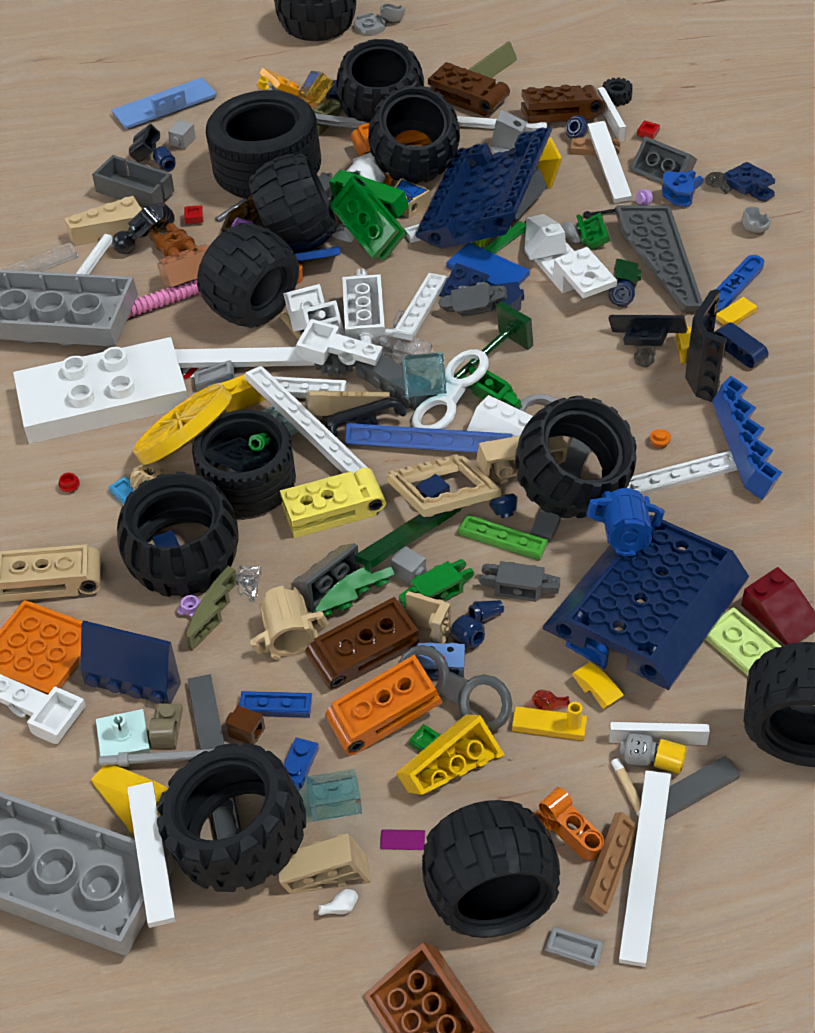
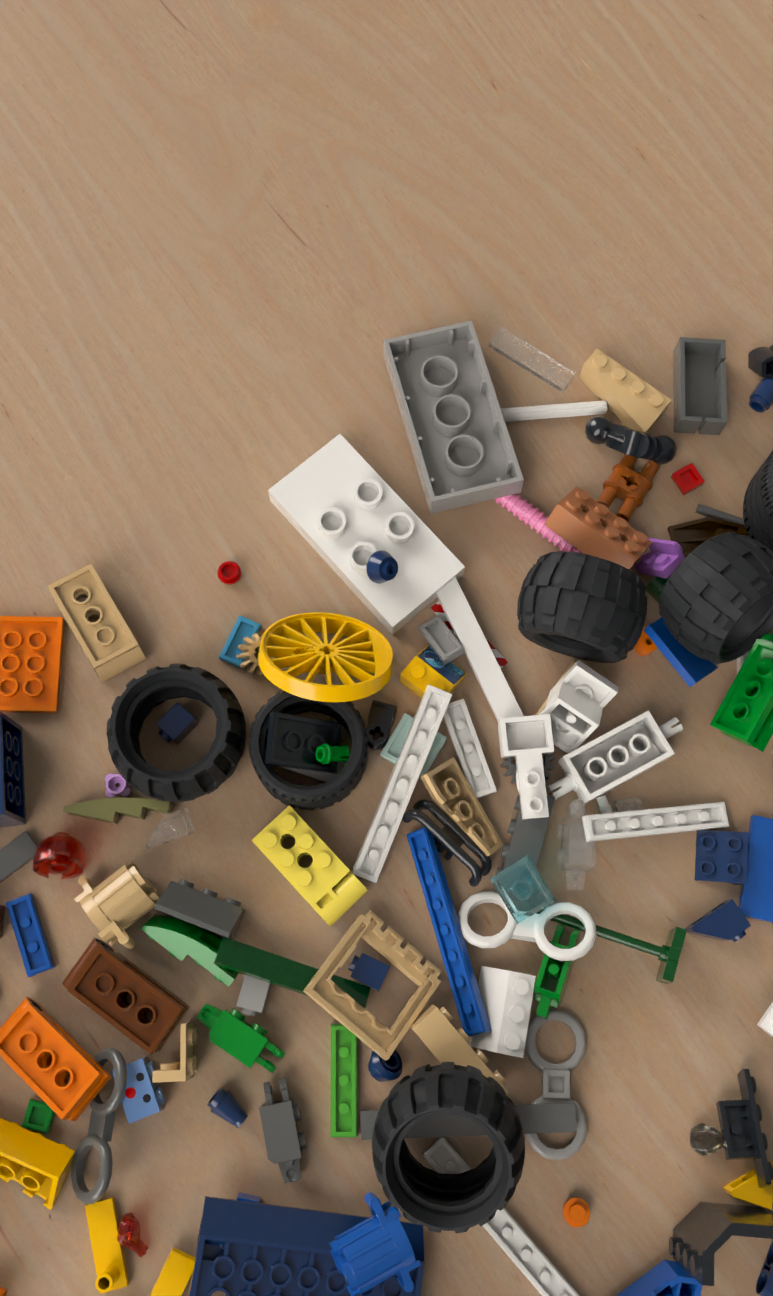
camera: 60 degrees right, 25 degrees up
(139, 372) = (381, 567): none -> dark blue cone
(226, 654) = (59, 855): none -> clear red cylinder
(468, 631) = (188, 1102): dark blue head -> none
(473, 299) = (692, 883): dark grey hinge -> none

